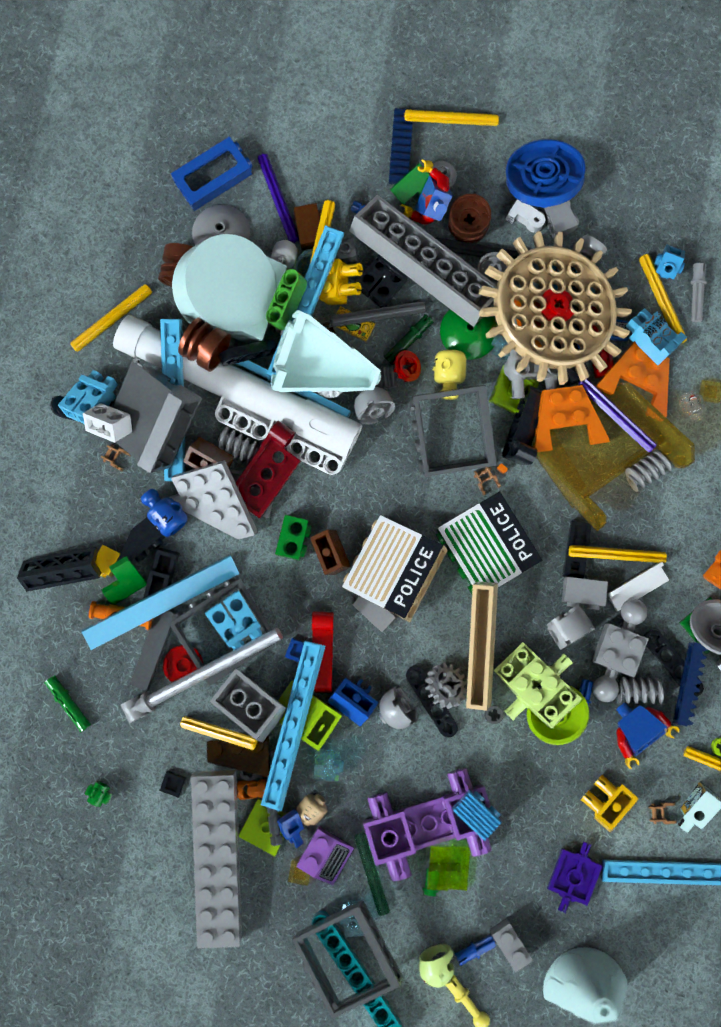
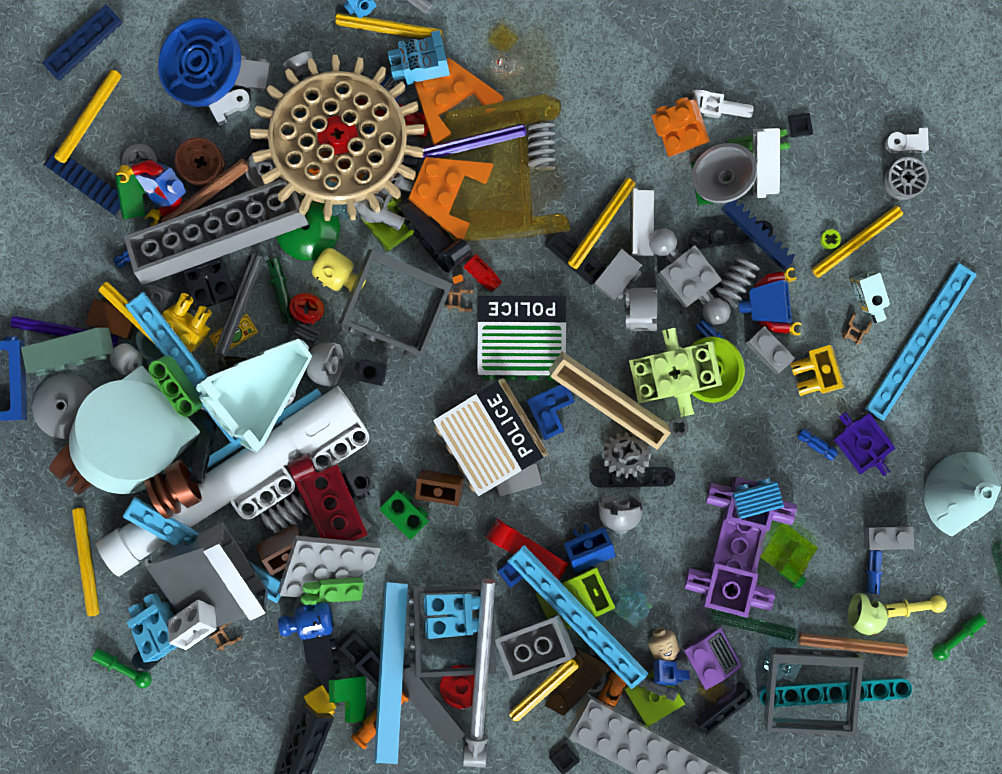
camera: 60 degrees left, 5 degrees up
(45, 413) = (141, 679): none -> green pin
(199, 517) = (332, 590): none -> bright green hinge
(264, 207) = (67, 350): none -> sand green brick
(290, 891) = (724, 708): none -> black plate
(303, 485) = (361, 474): none -> black brick
(387, 454) = (379, 377): none -> black brick
(405, 968) = (853, 644): none -> nougat axle
(445, 597) = (545, 407): none -> blue plate
(457, 240) = (210, 190): none -> nougat axle
(504, 82) = (82, 42): none -> dark blue gear
(519, 484) = (482, 273): none -> red hinge
(550, 838) = (817, 444): none -> blue axle
(601, 752) = (770, 350): none -> light grey brick

